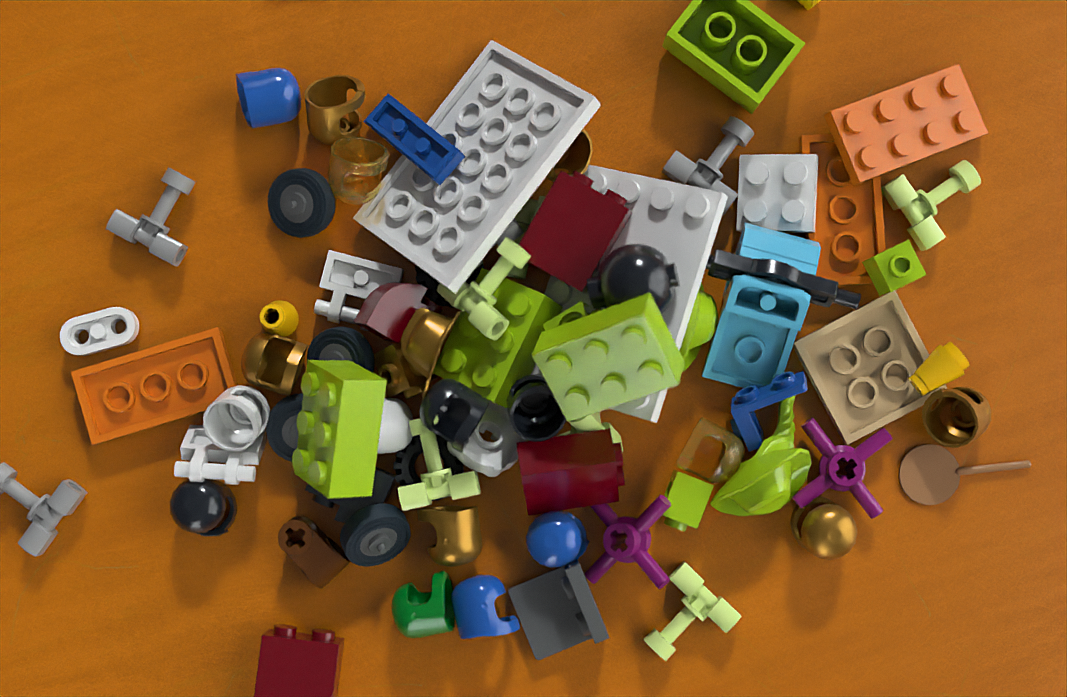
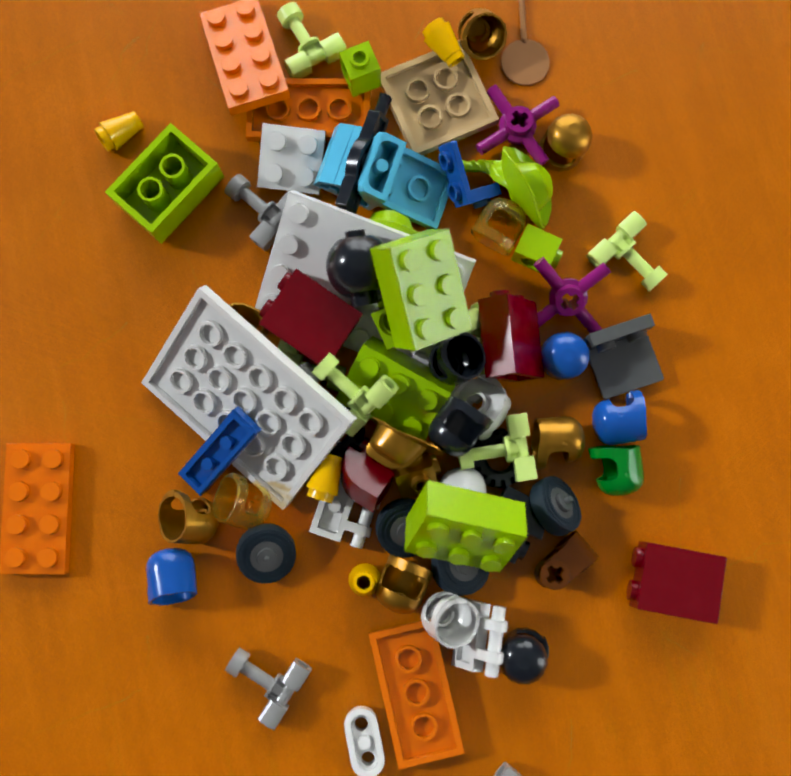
camera: 85 degrees left, 5 degrees down
(387, 264) = (325, 479): none -> yellow cone

